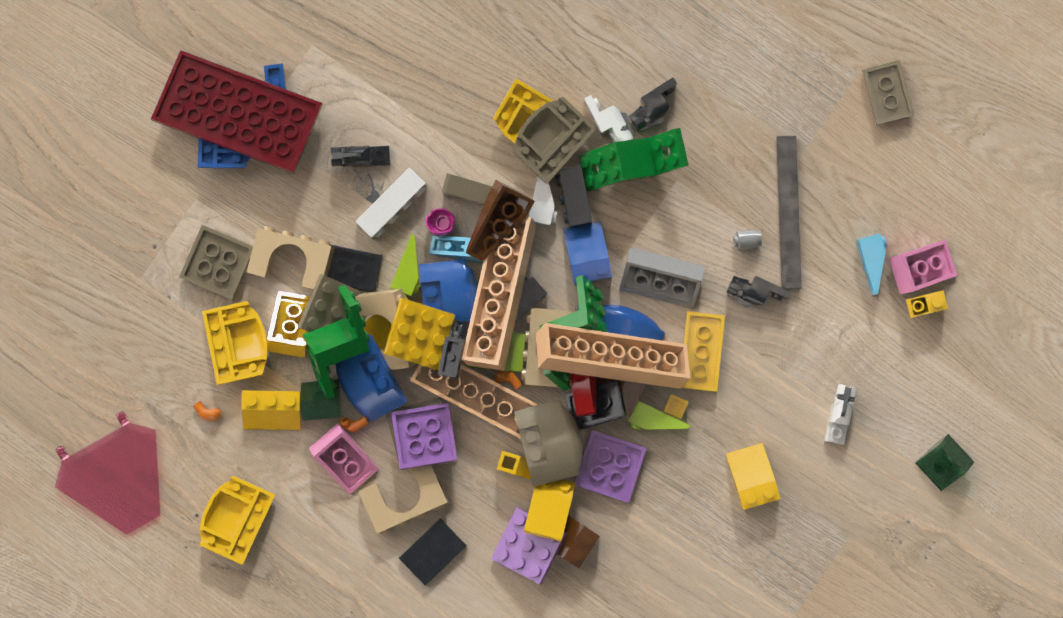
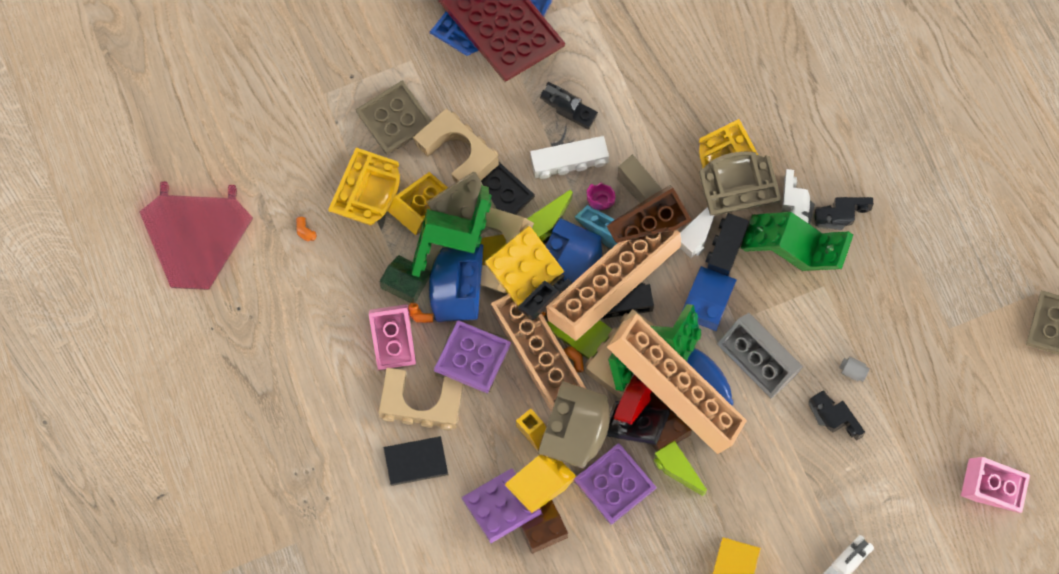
camera: 35 degrees right, 15 degrees down
(234, 518) = (268, 327): yellow slope -> none
(271, 410) = (358, 259): yellow slope -> none
(675, 406) = (704, 468): yellow plate -> none
(704, 347) = (758, 437): yellow plate -> none
(788, 212) = (904, 369): tile -> none
(872, 256) = (957, 446): medium azure slope -> none
(926, 304) = (979, 517): yellow slope -> none

